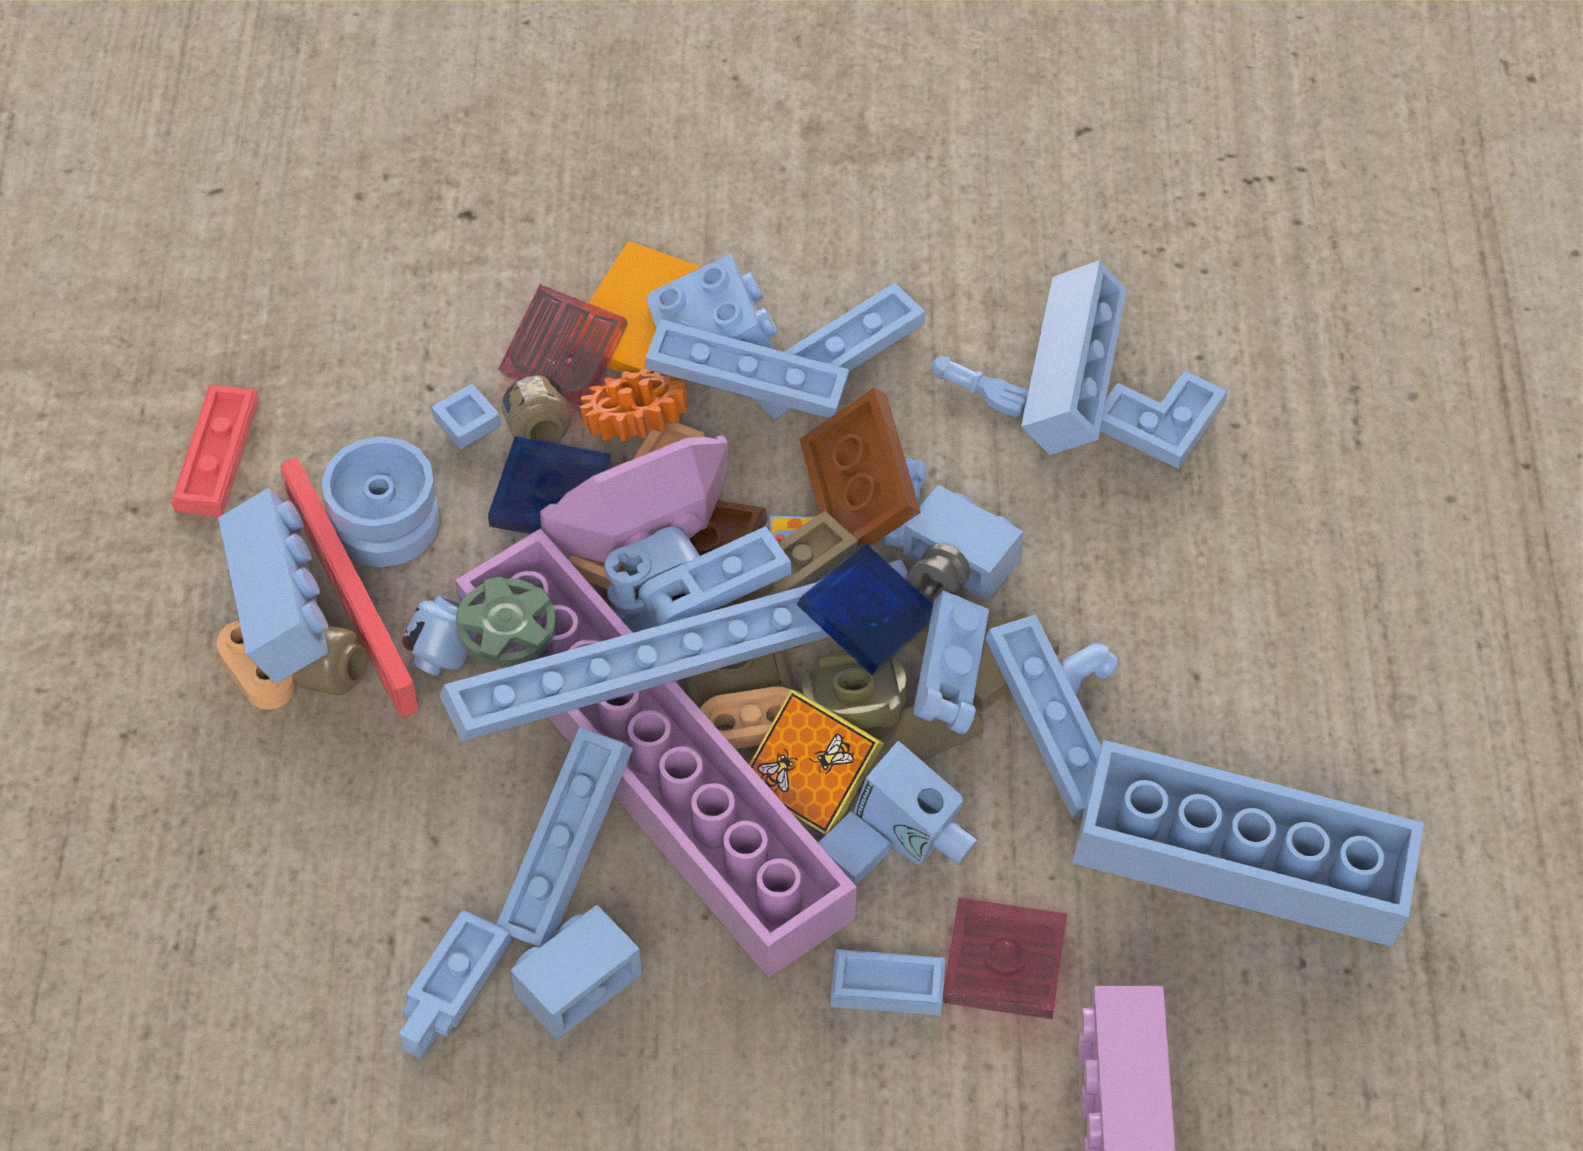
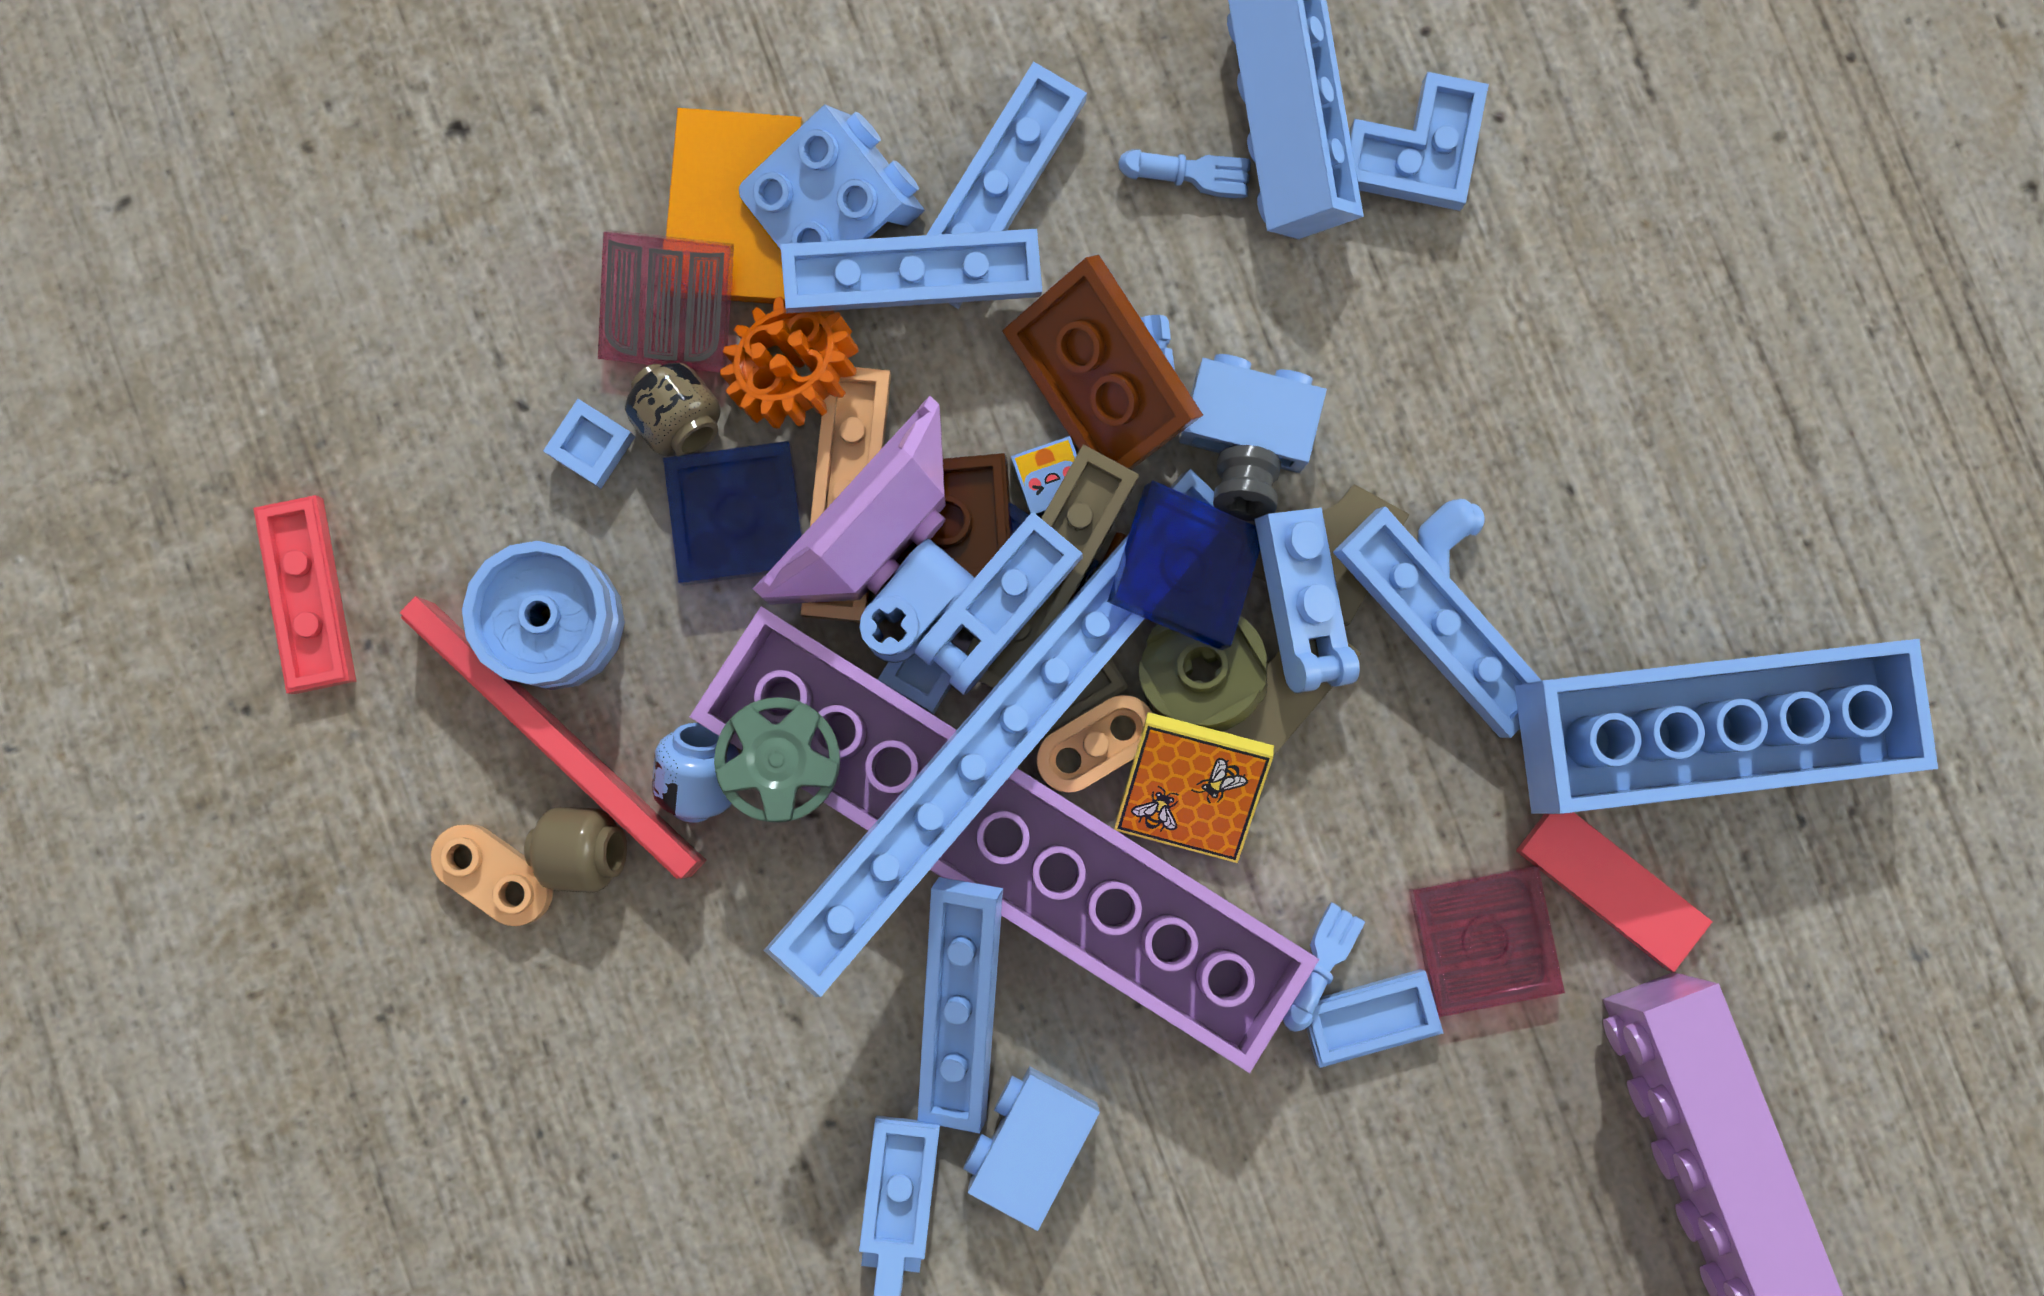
camera: 25 degrees left, 30 degrees up
(273, 585) = (469, 792): light blue brick -> none
(855, 847) = (1272, 866): light blue tile -> none
(876, 918) = (1331, 945): none -> light blue piece
(914, 808) = (1333, 812): light blue torso -> none
(1121, 943) = (1615, 887): none -> coral tile

